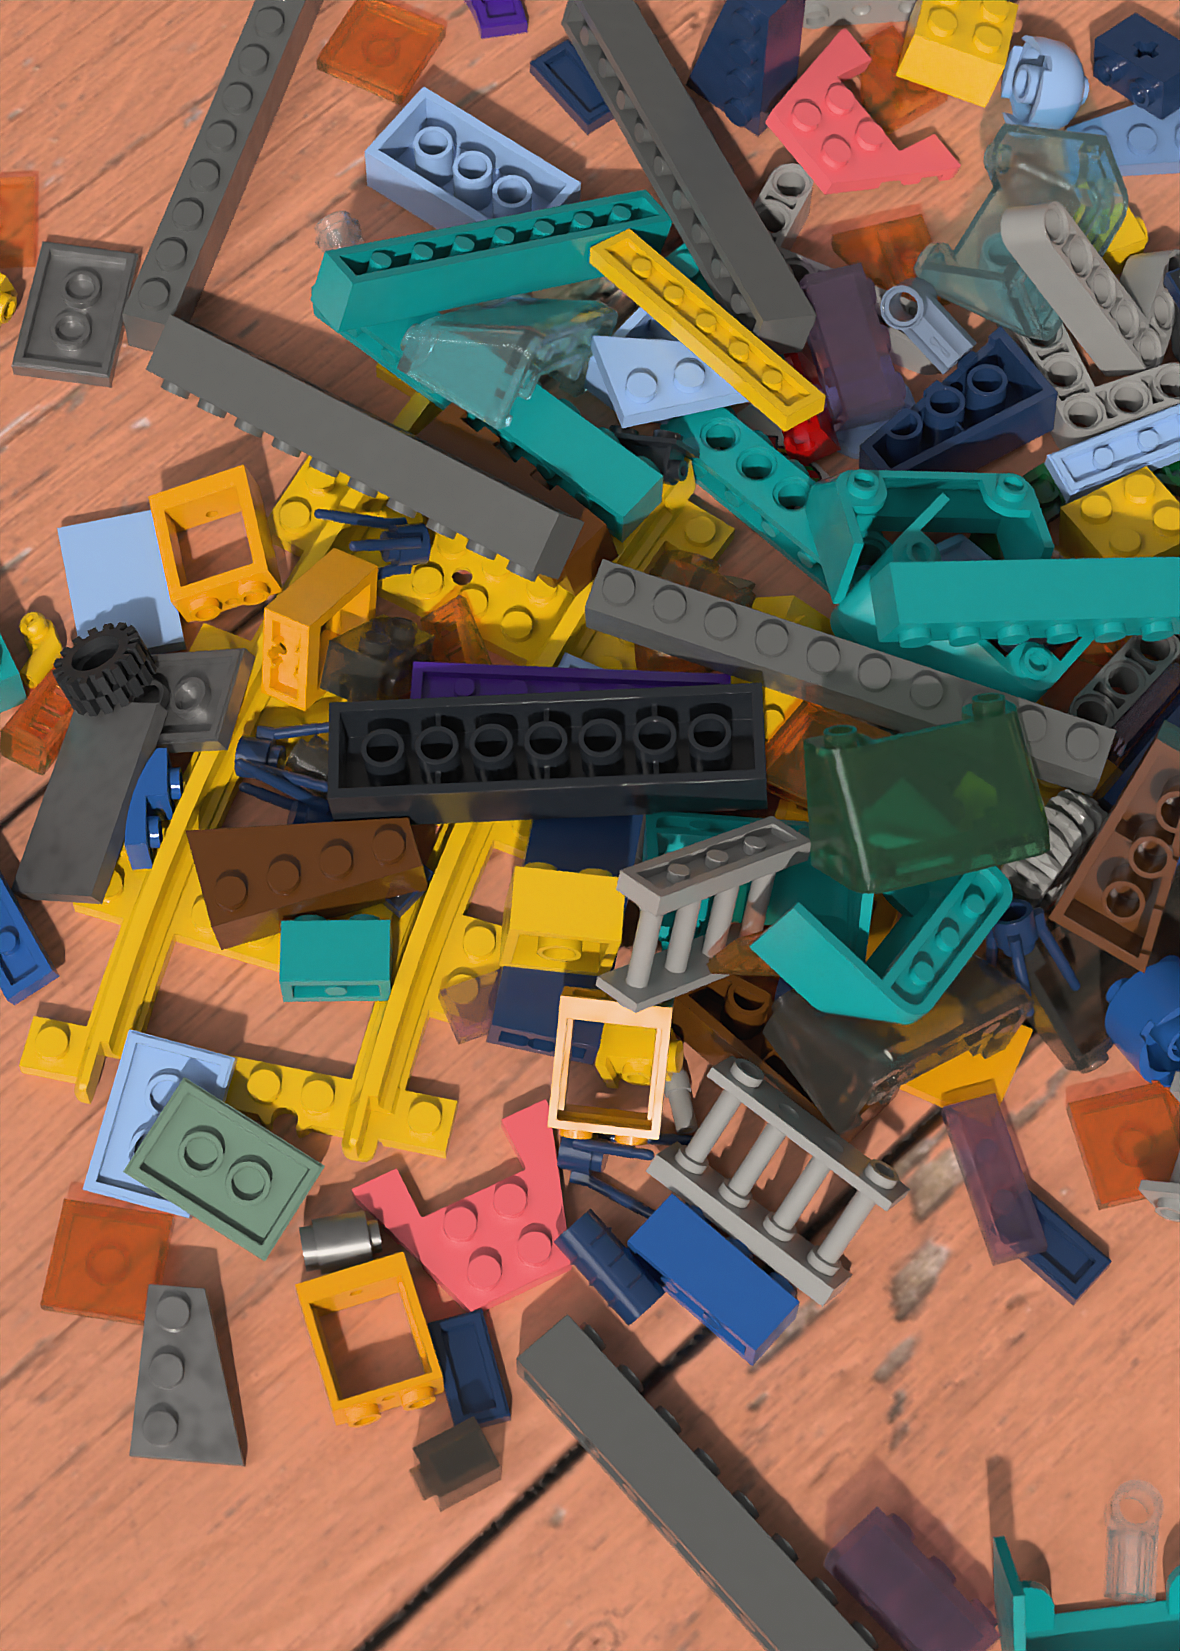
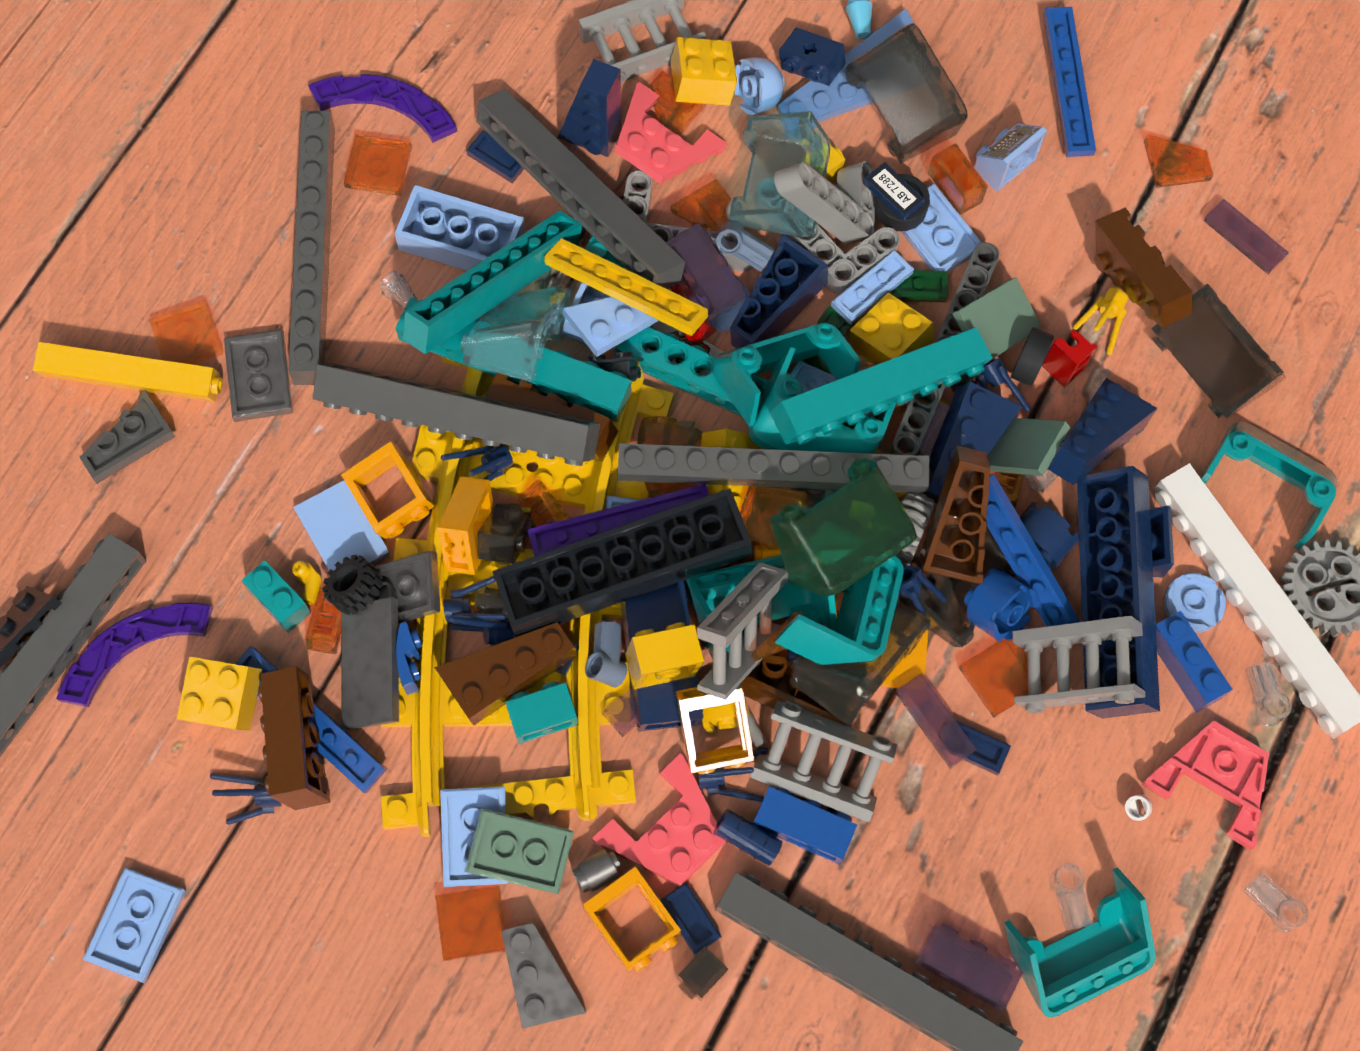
camera: 20 degrees left, 5 degrees up
(470, 908) = (605, 661): none -> sand blue piece

